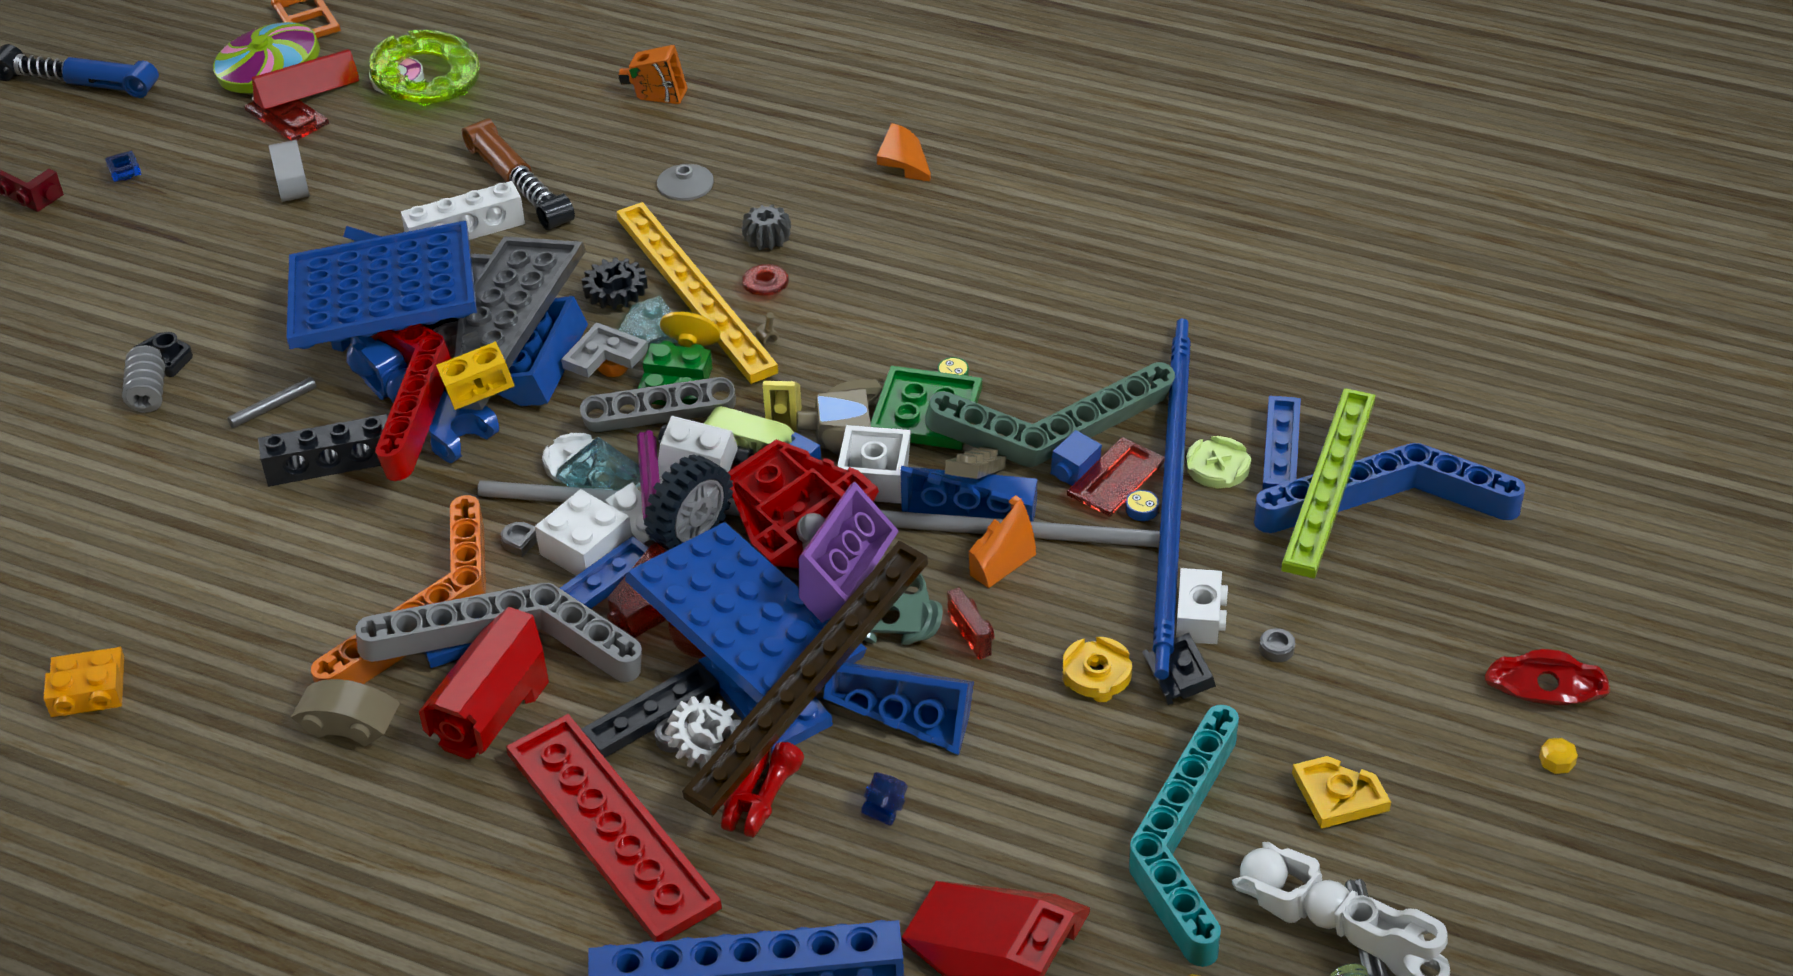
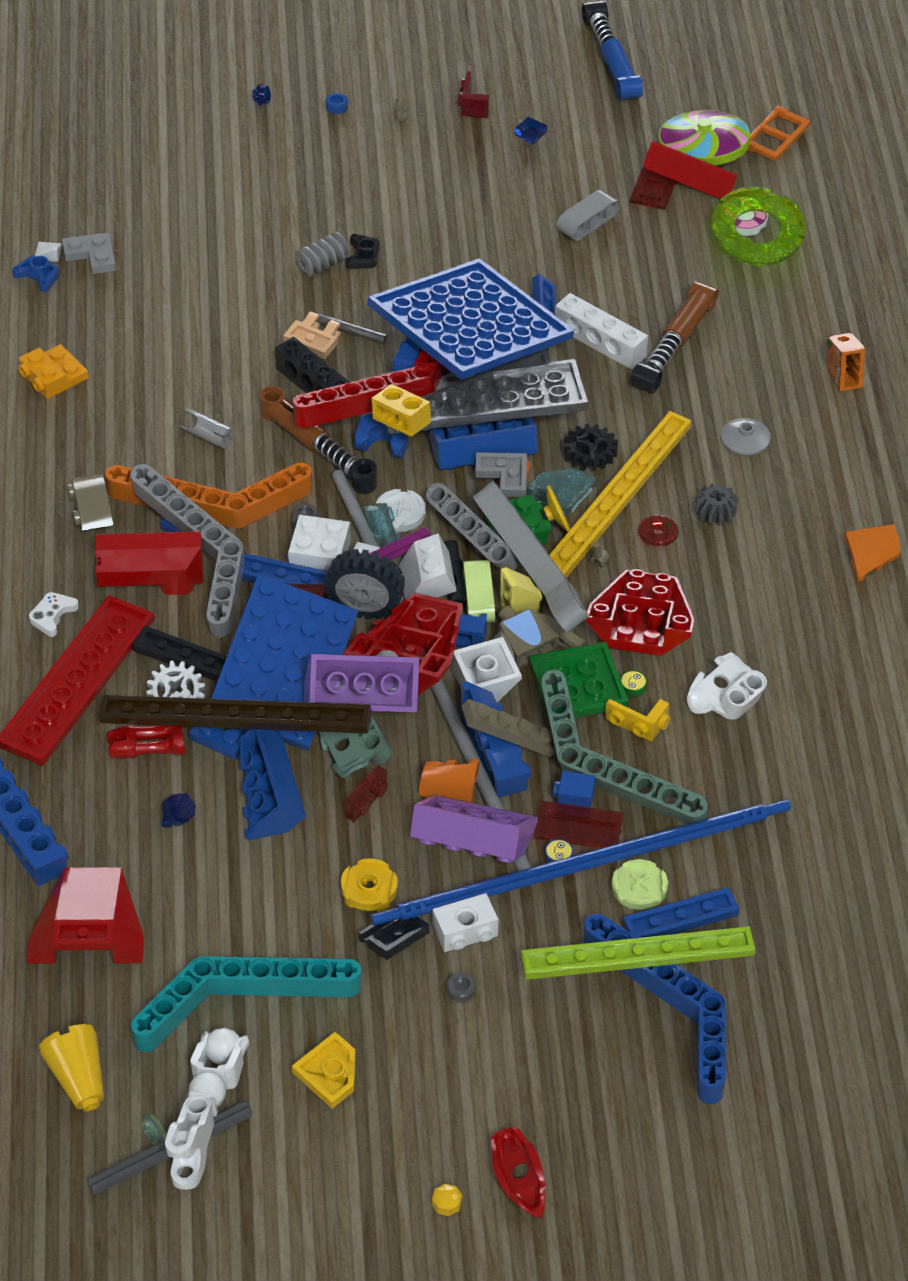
camera: 60 degrees right, 5 degrees up
(244, 441) = (316, 340): none -> light nougat plate
(320, 568) = (210, 430): none -> light grey piece
(337, 499) = (278, 409): none -> piece
(485, 816) = (48, 612): none -> white piece
(748, 369) = (559, 593): none -> light grey beam
(875, 324) = (642, 613): none -> red wedge
(1015, 381) = (639, 724): none -> yellow bracket
(1025, 303) = (706, 696): none -> white piece
(1079, 549) = (472, 827): none -> medium lavender slope

